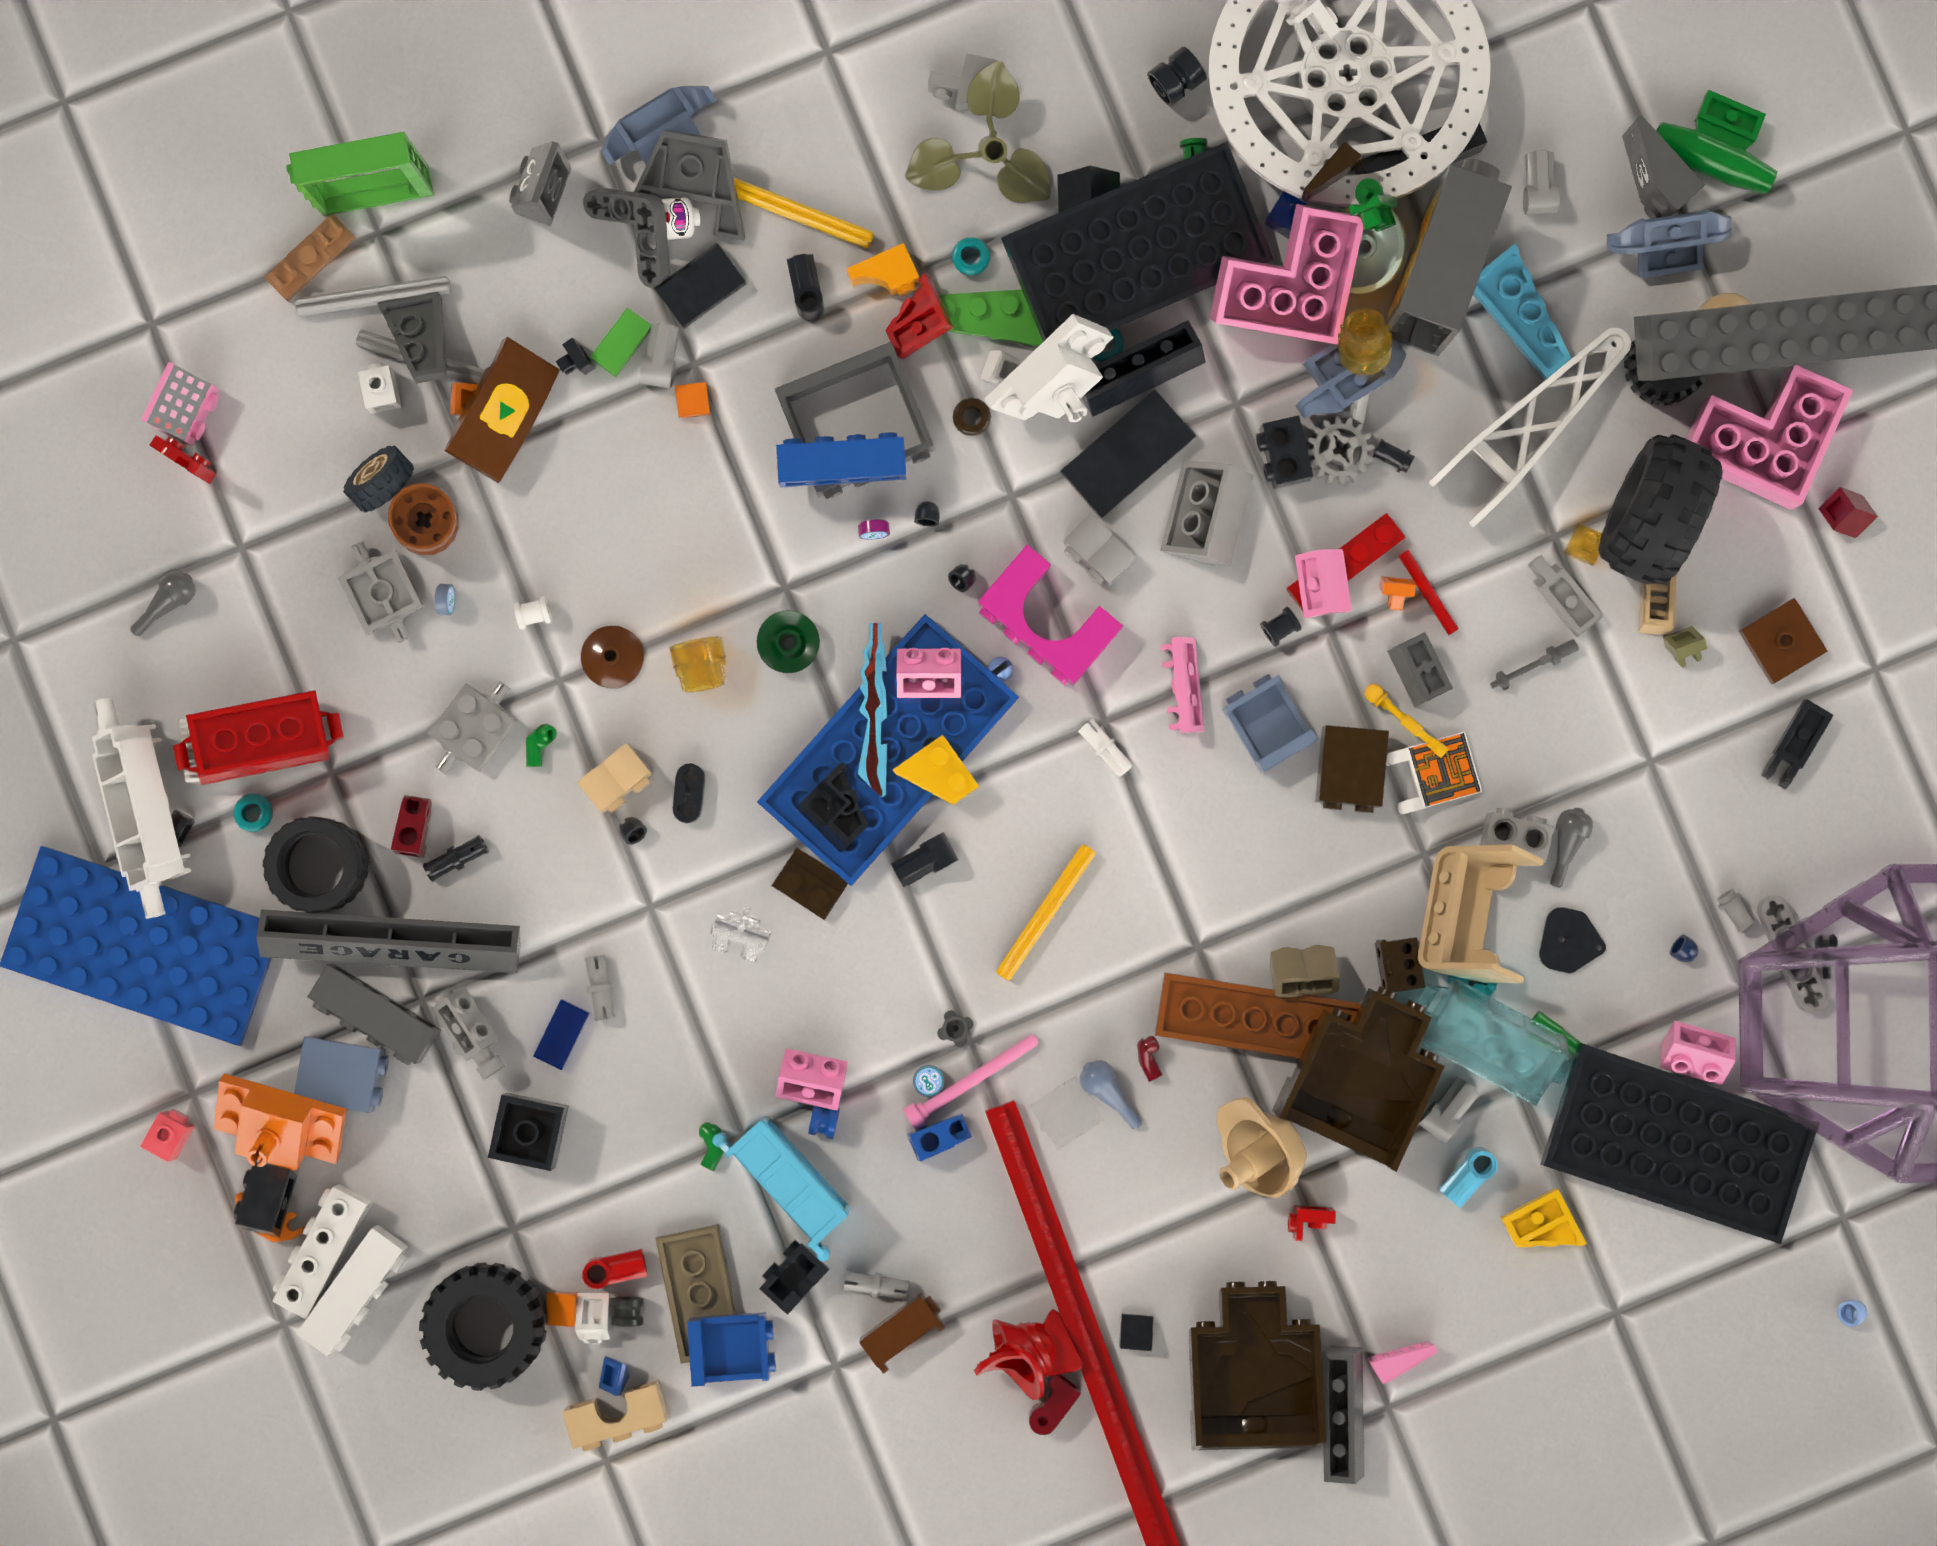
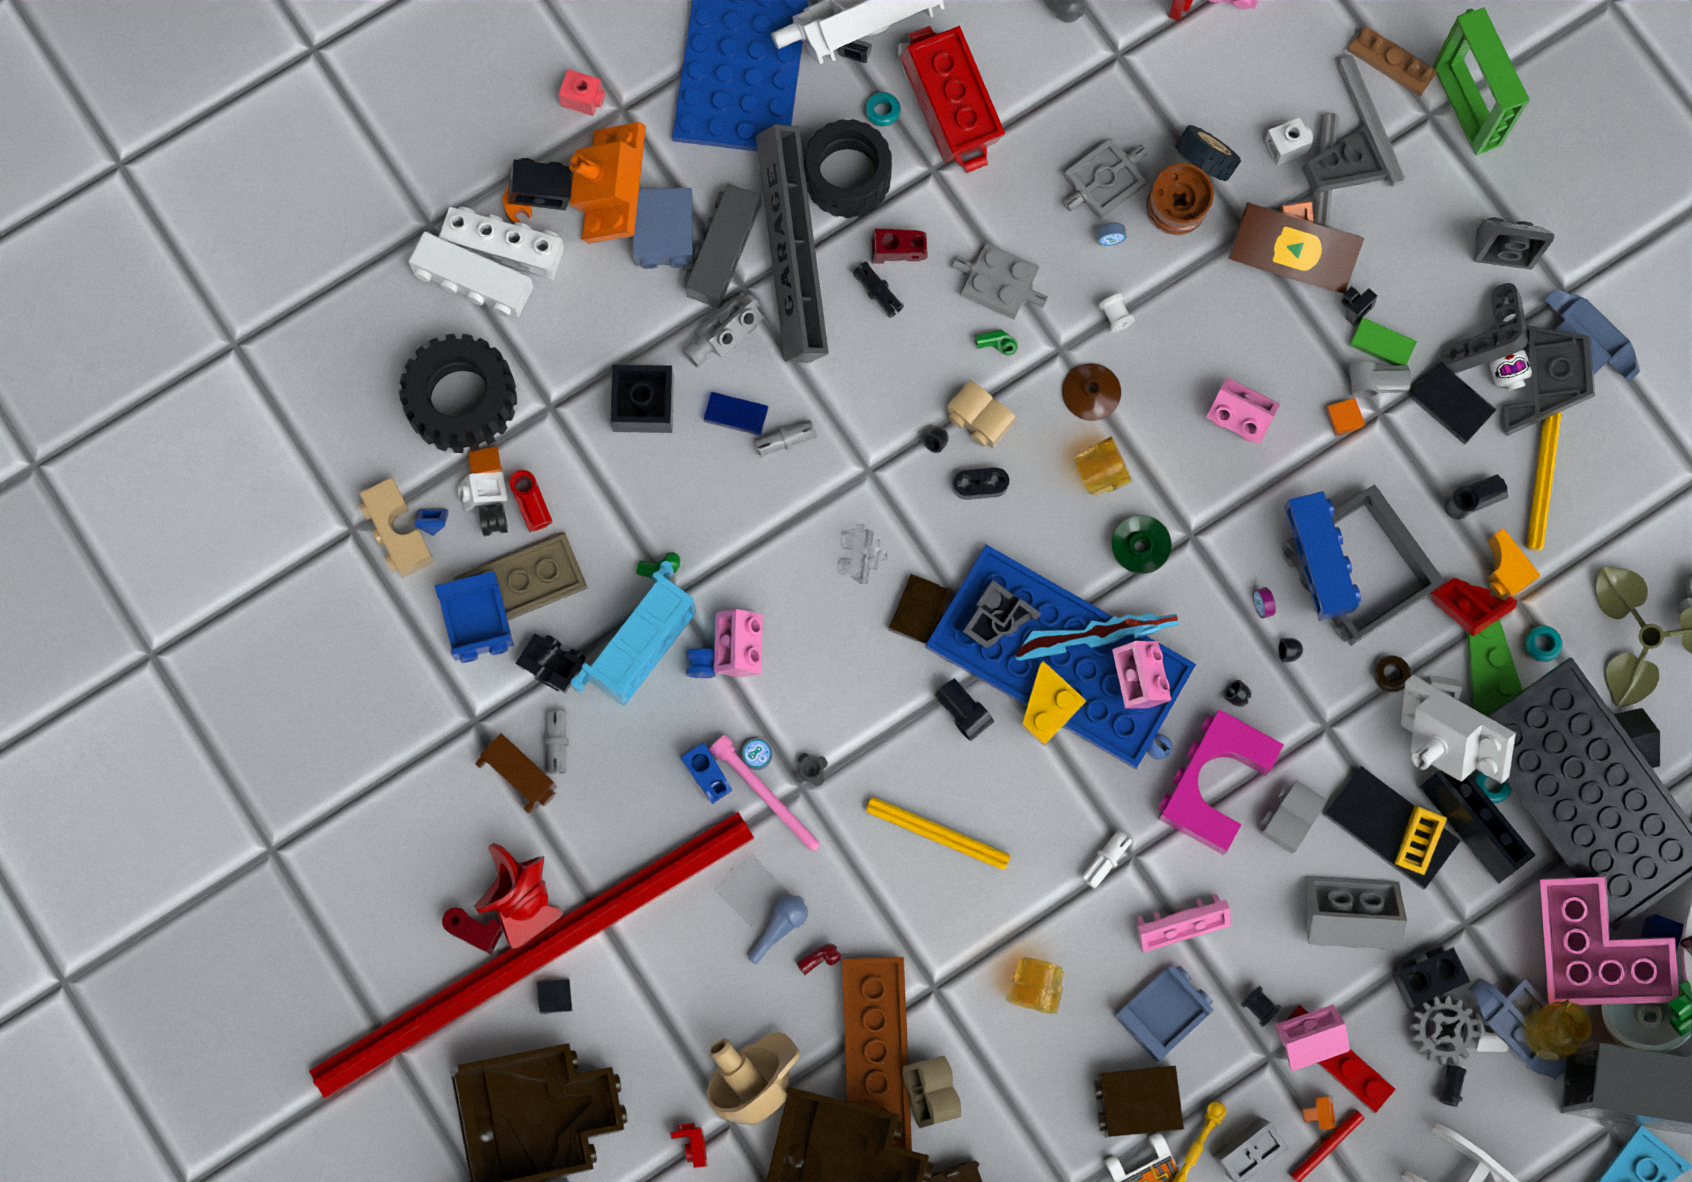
camera: 80 degrees right, 10 degrees down
(667, 505) = (1243, 411): none -> bright pink brick
(1141, 438) = (1413, 824): none -> yellow slope
(1221, 846) = (1036, 986): none -> clear yellow piece

